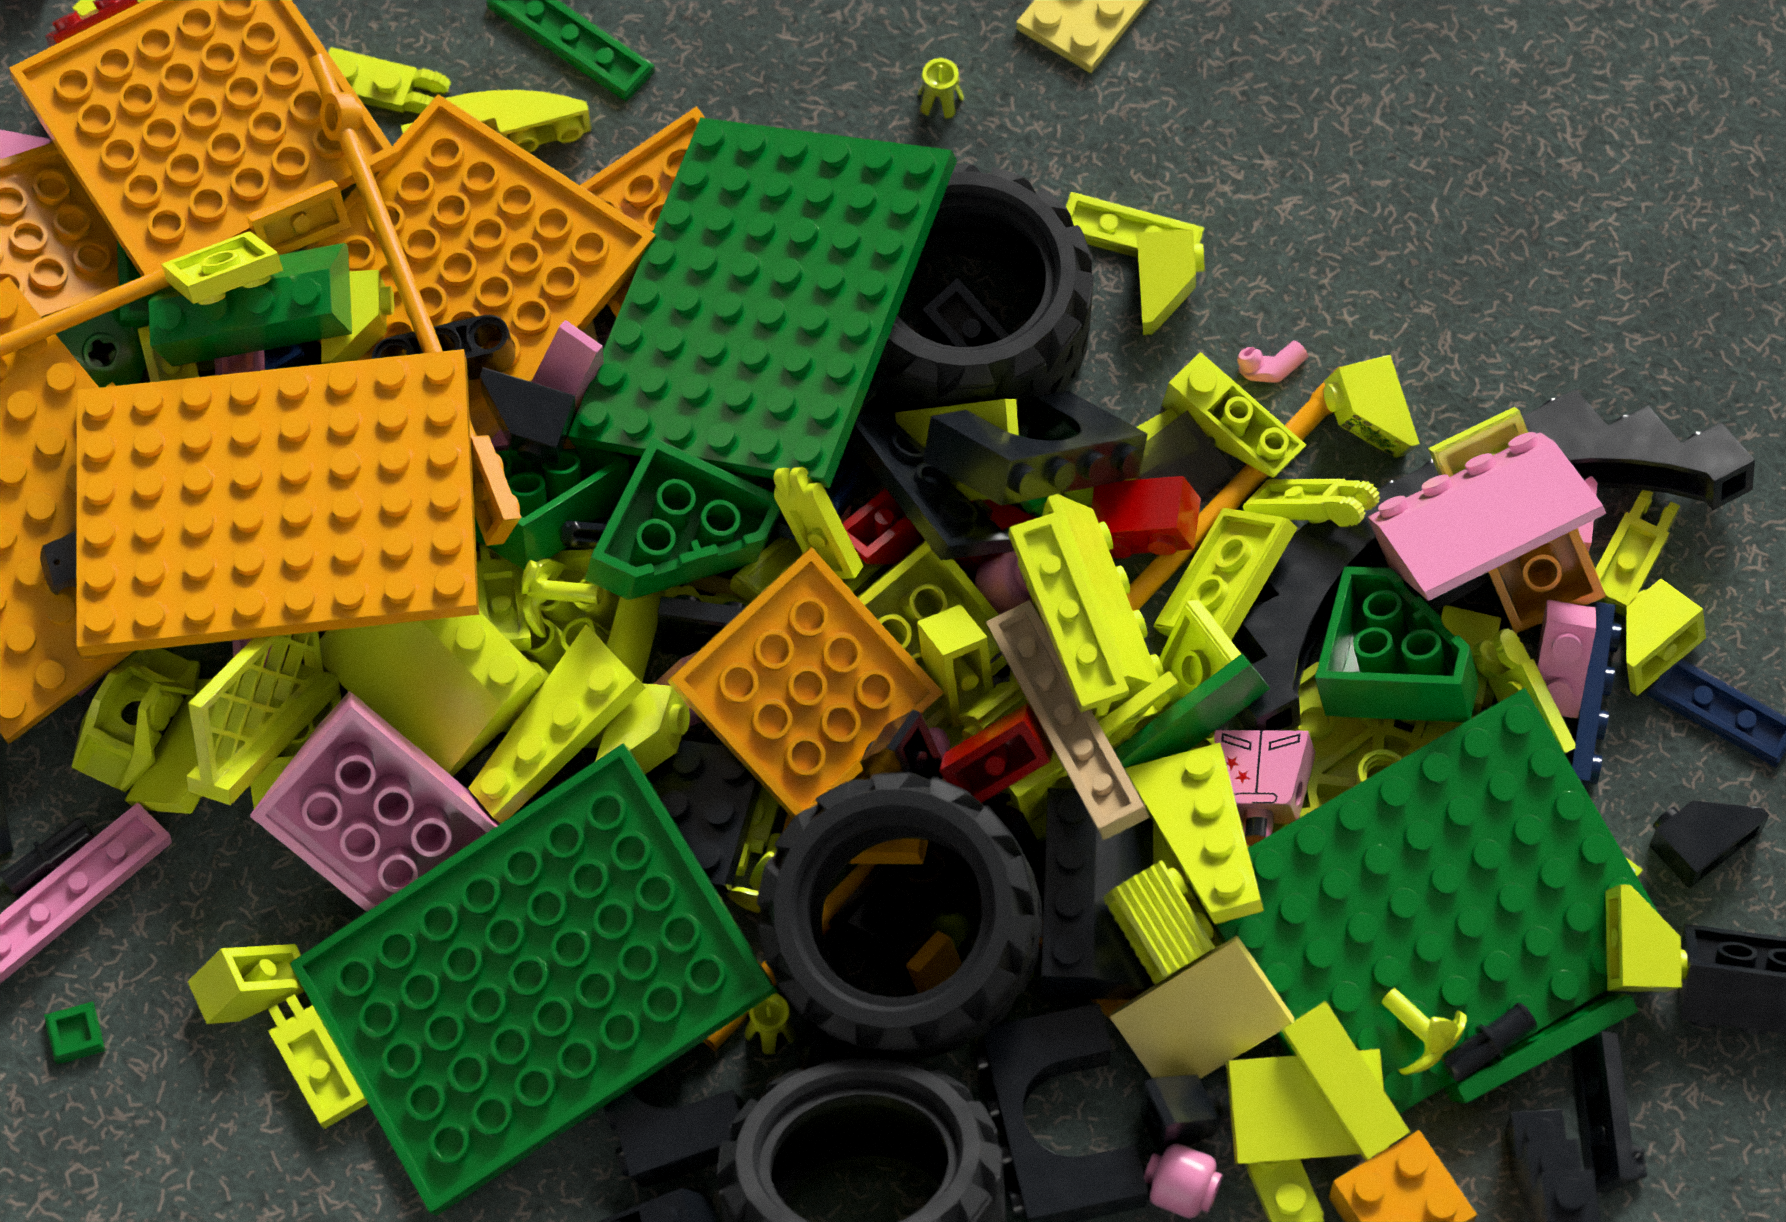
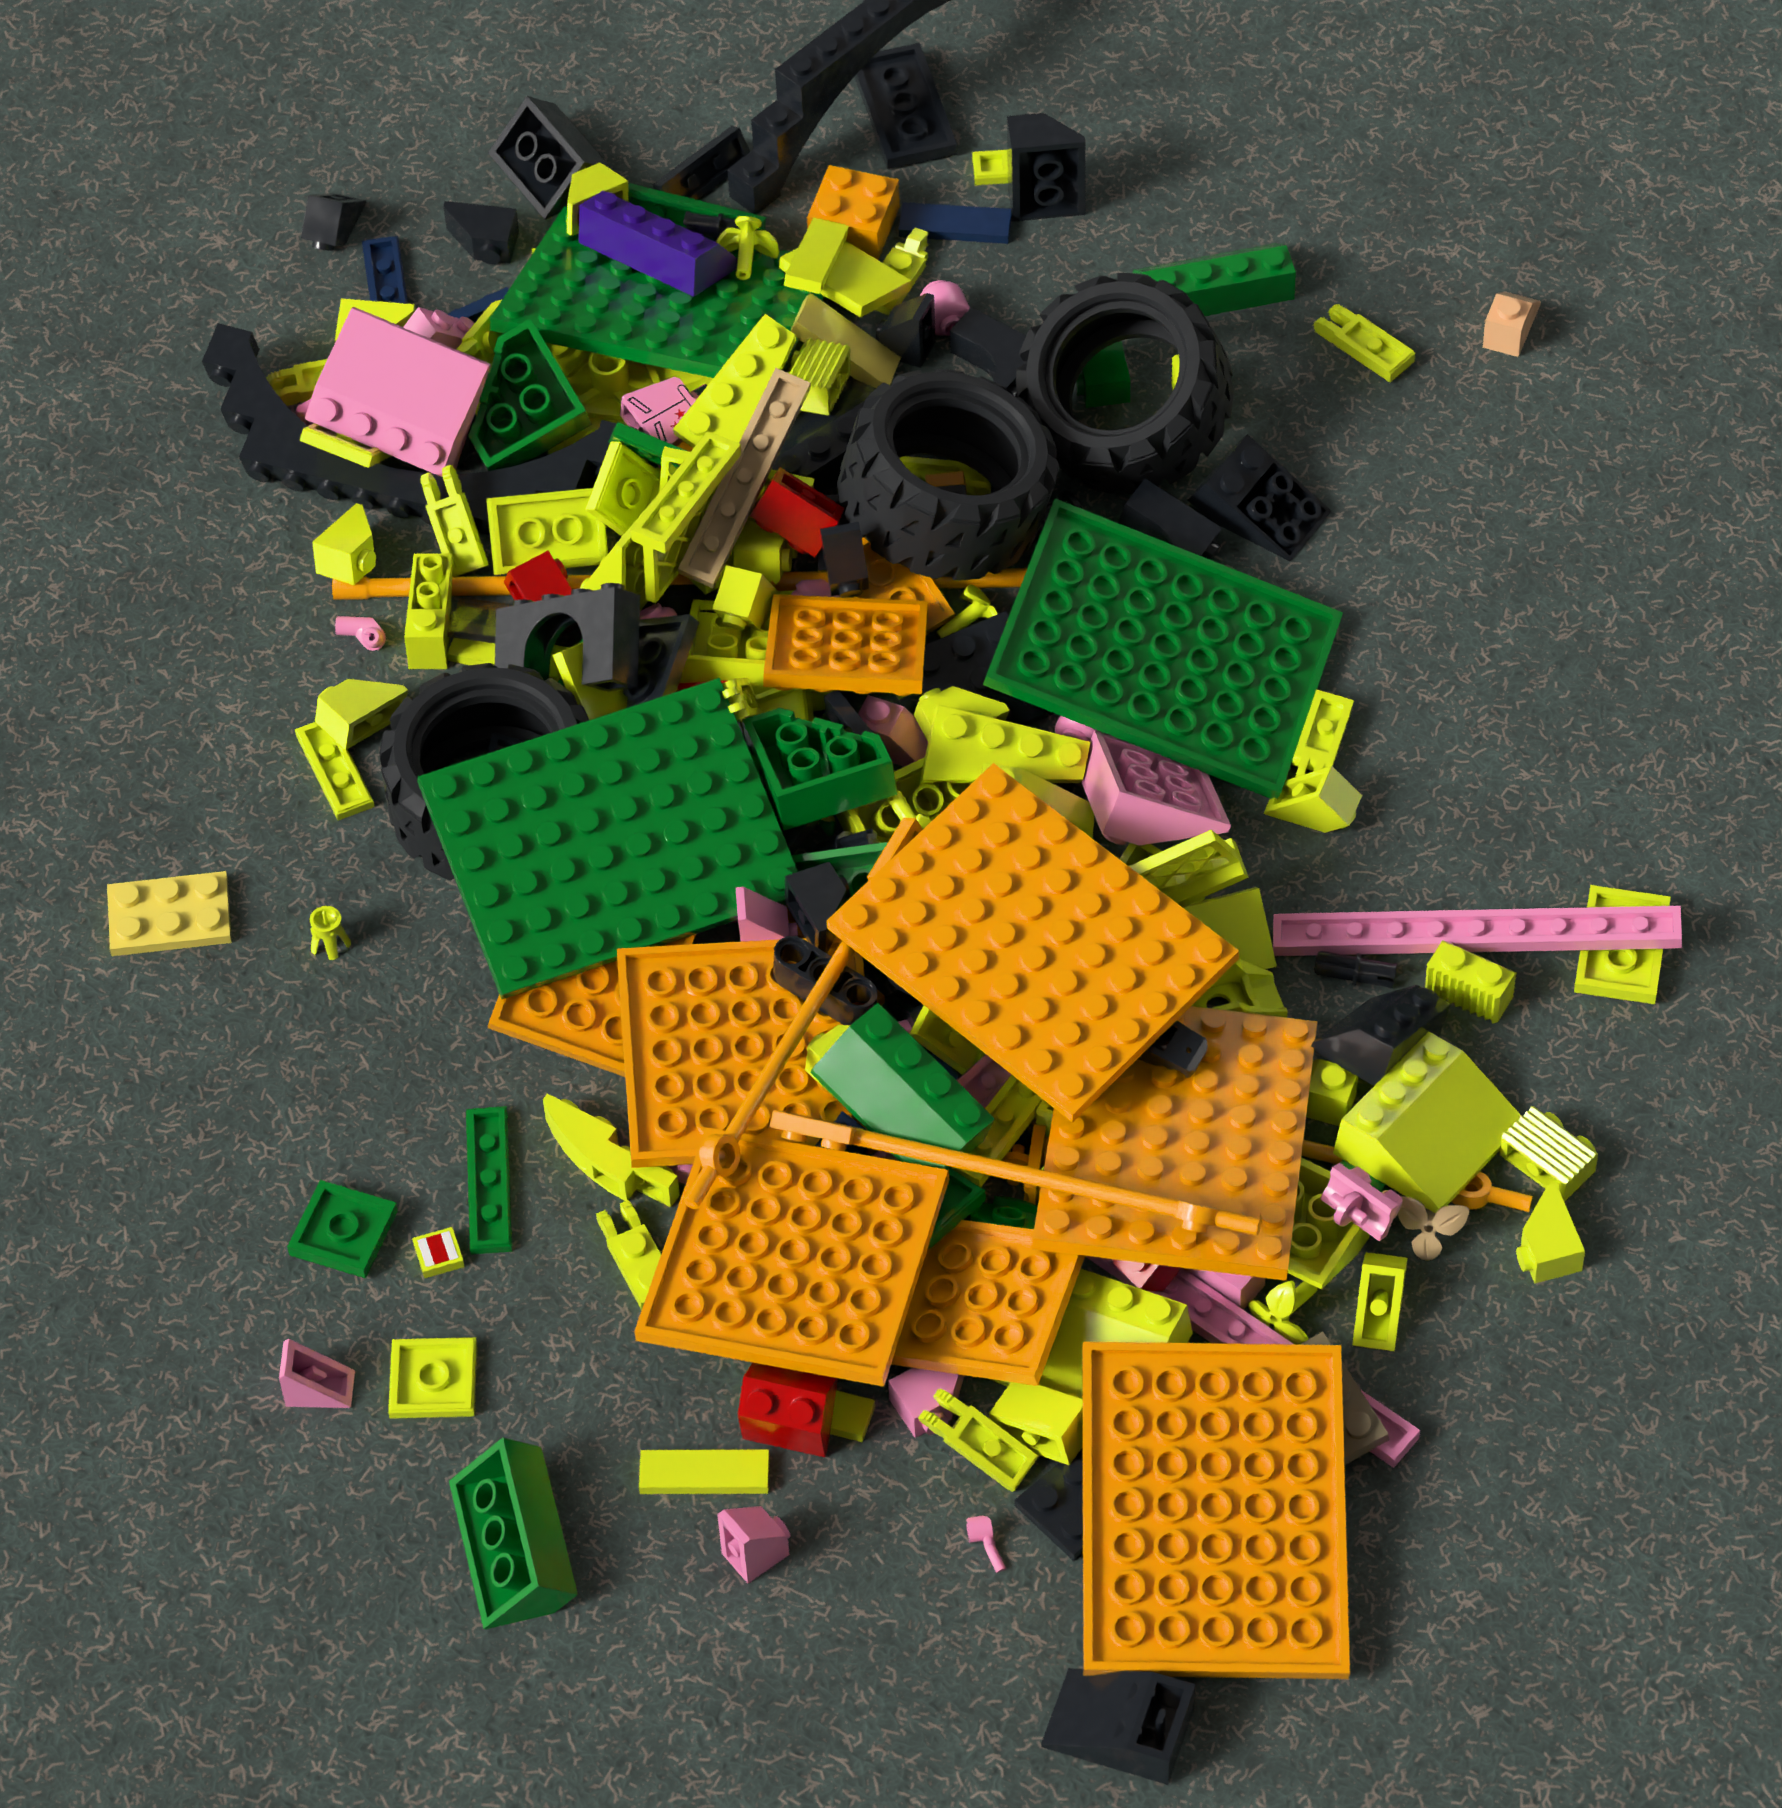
camera: 130 degrees left, 10 degrees down
(75, 1032) = (1437, 870): green tile -> none
(222, 267) = (907, 1097): neon yellow plate -> none
(1508, 948) = (652, 244): none -> dark purple slope

